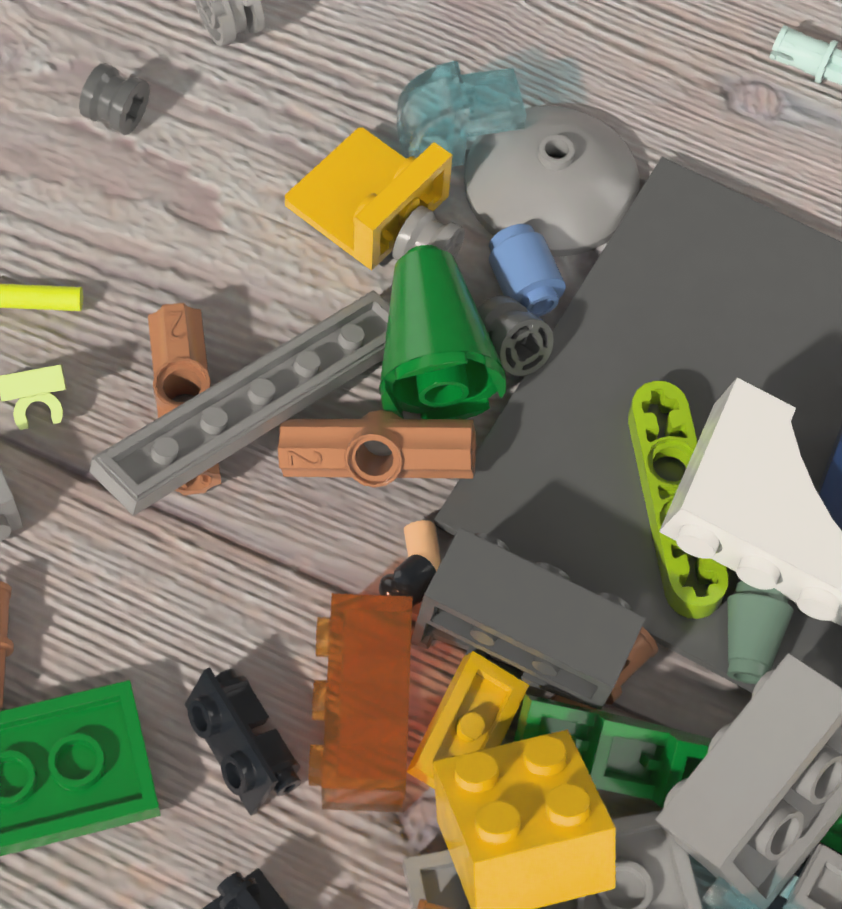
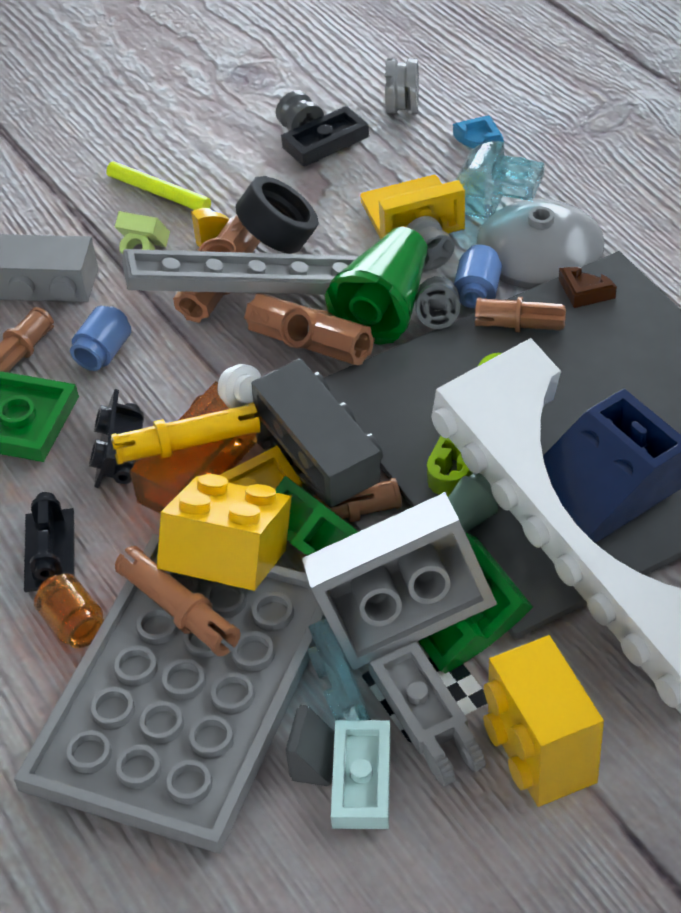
camera: 40 degrees right, 15 degrees down
(103, 586) = (100, 337): none -> medium blue brick
(123, 338) = (207, 224): none -> yellow tile
(170, 119) = (325, 136): none -> black plate
(215, 287) = (276, 214): none -> black tyre
(349, 723) = (185, 433): none -> yellow pin
(364, 34) = (477, 131): none -> dark azure tile
(391, 598) = (236, 385): none -> white plate
(622, 312) = (519, 314): none -> nougat axle
(664, 232) = (586, 288): none -> reddish brown tile

